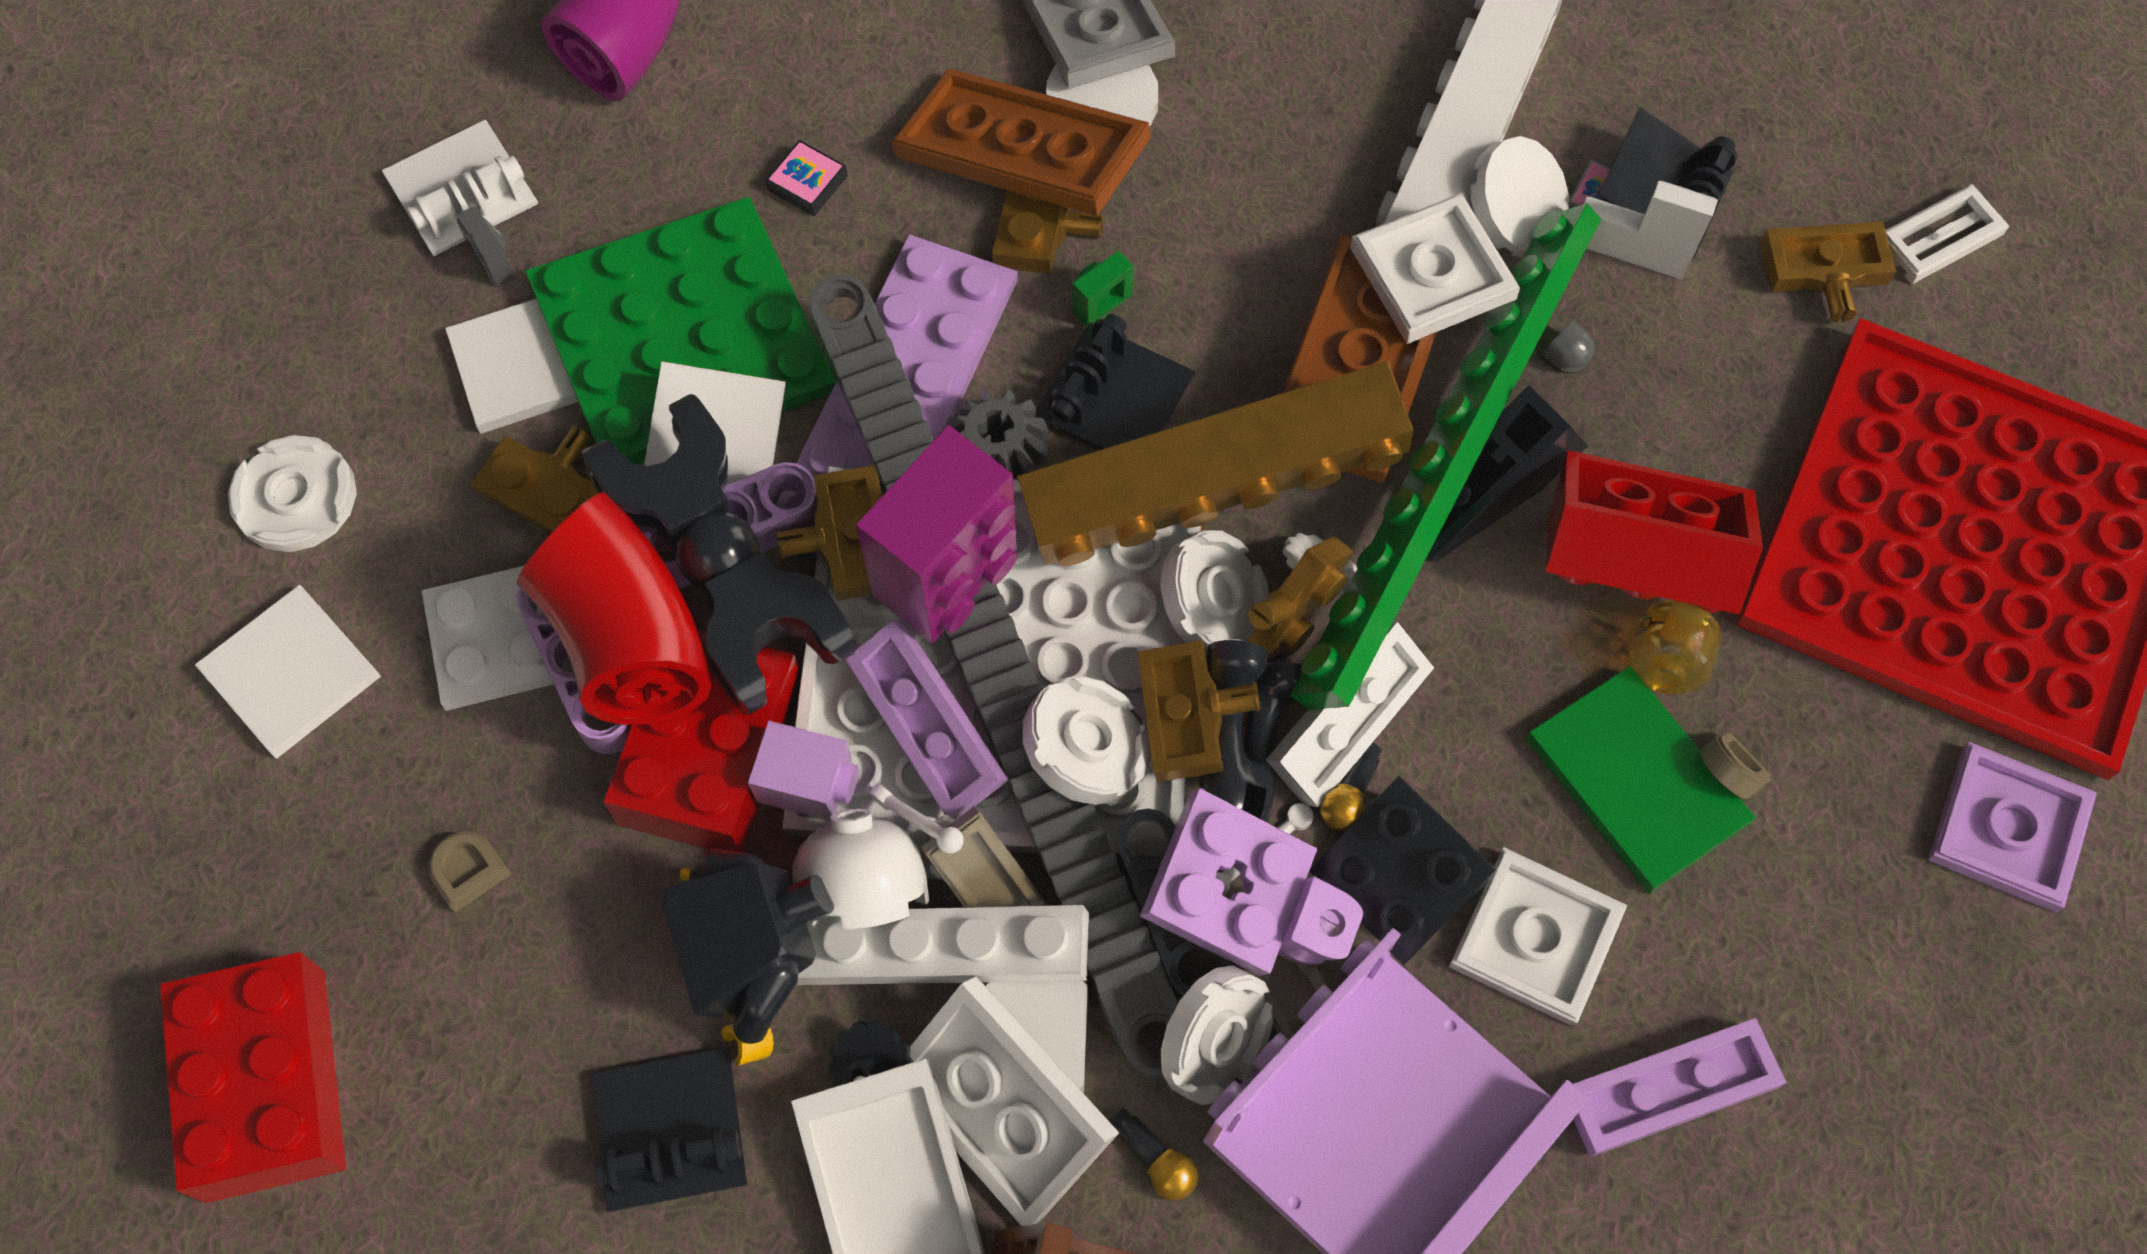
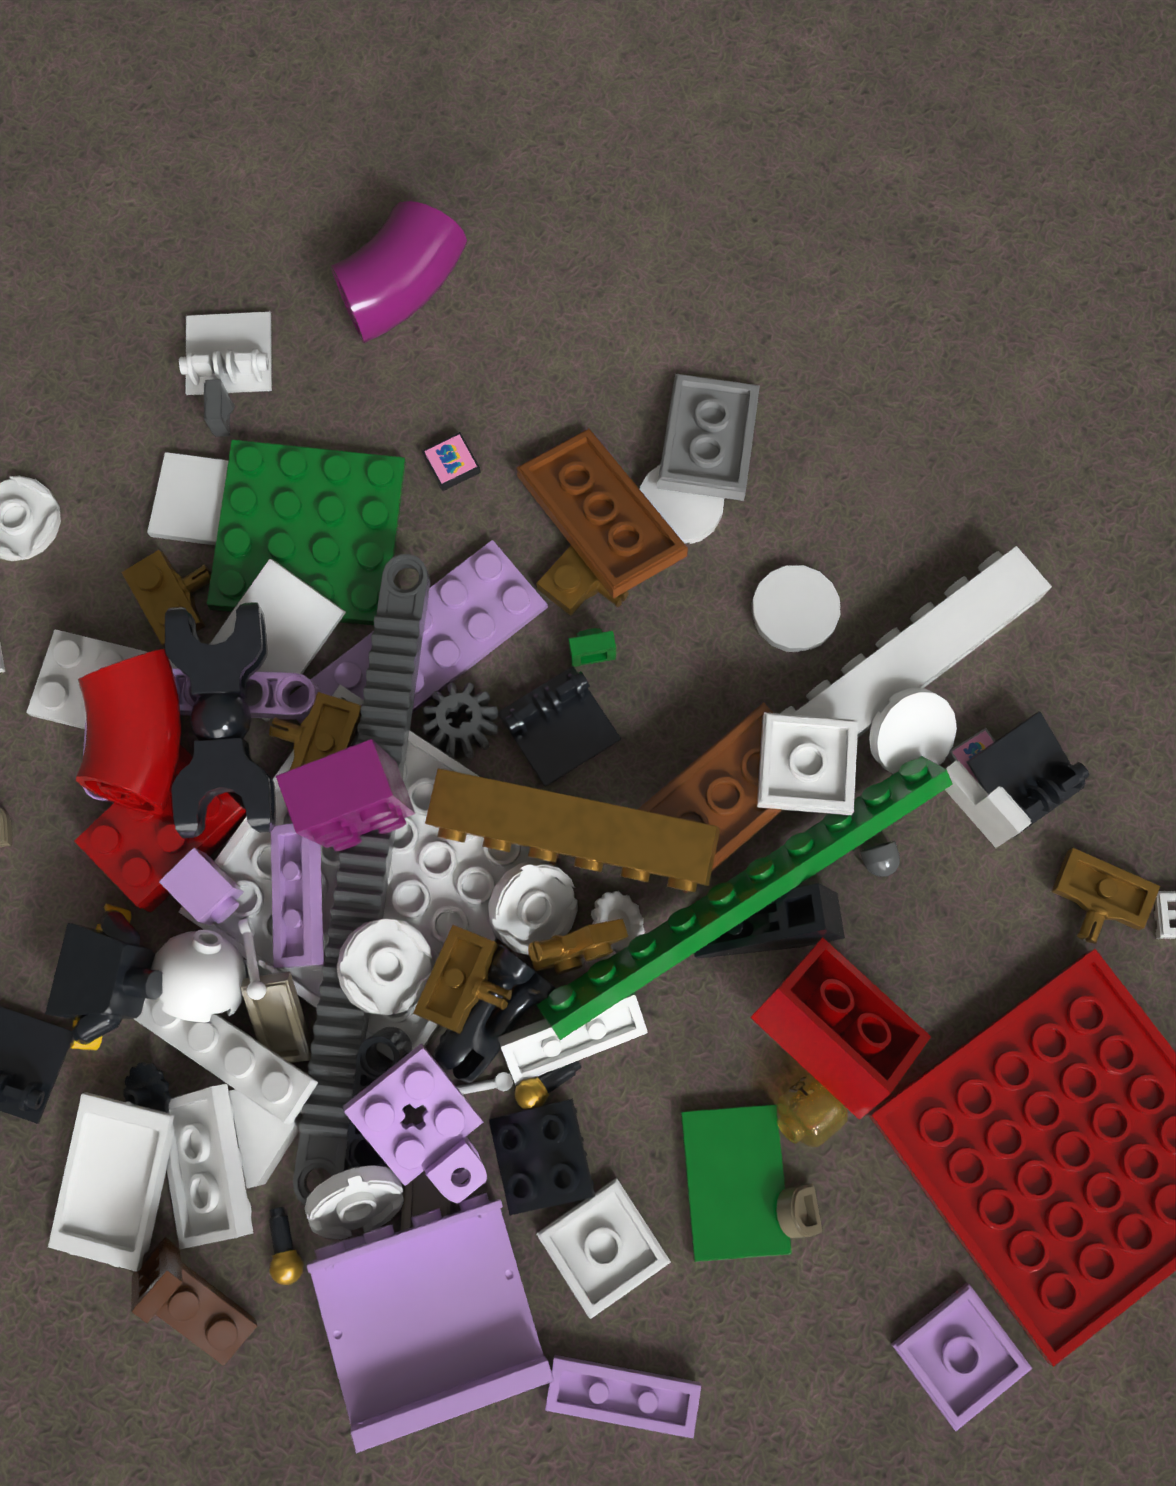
camera: 30 degrees right, 10 degrees up
(1302, 143) = (795, 608): none -> white tile

